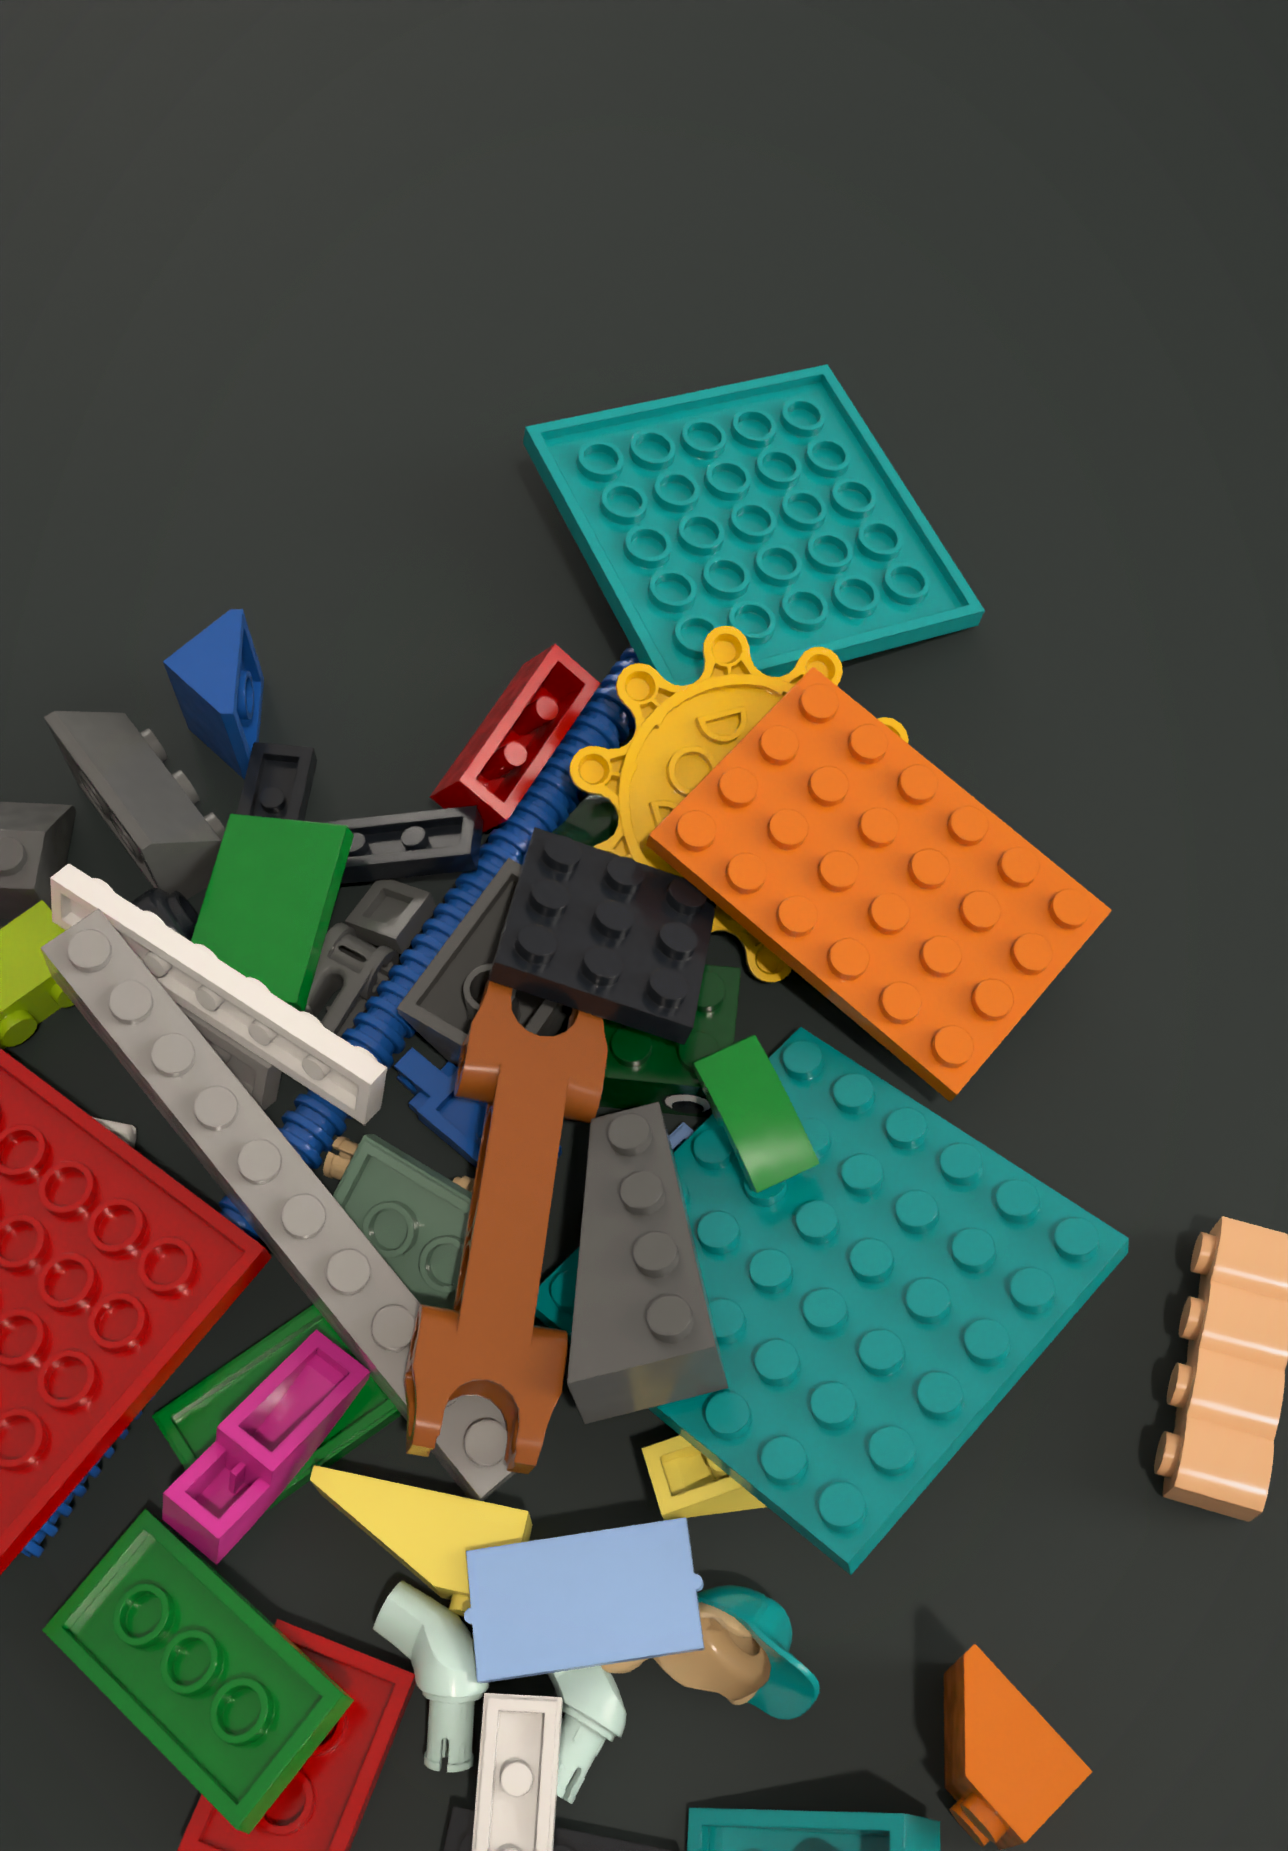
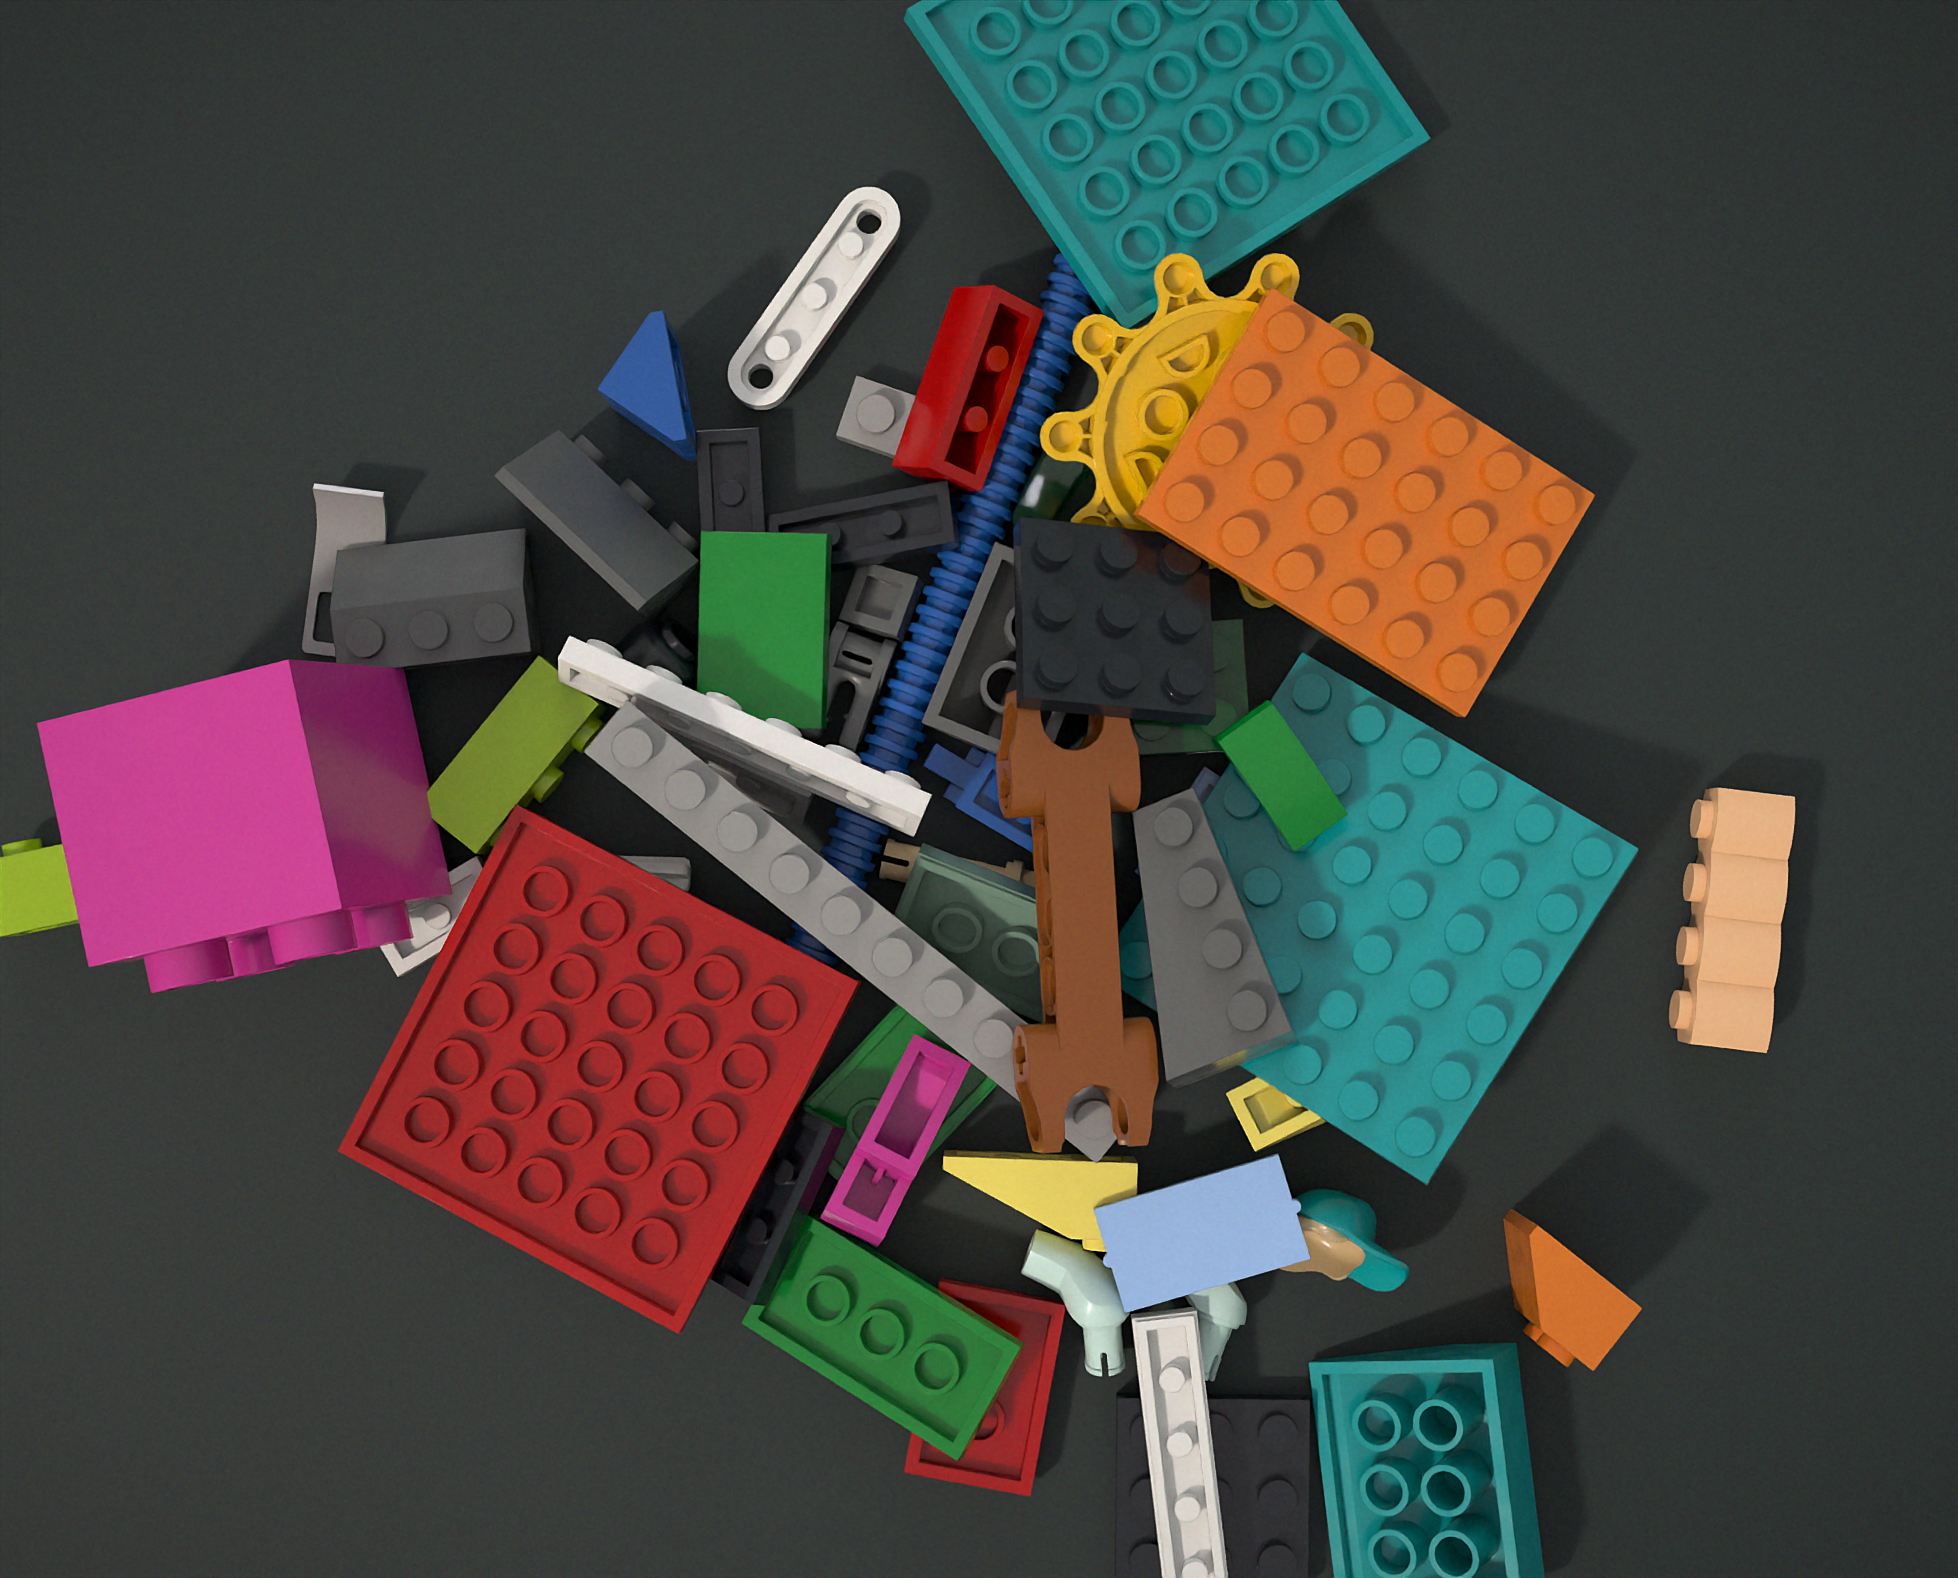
camera: 10 degrees left, 25 degrees up
(114, 1494) = (779, 1207): none -> black plate
(392, 659) = (814, 298): none -> white plate
(422, 762) = (875, 417): none -> light grey plate

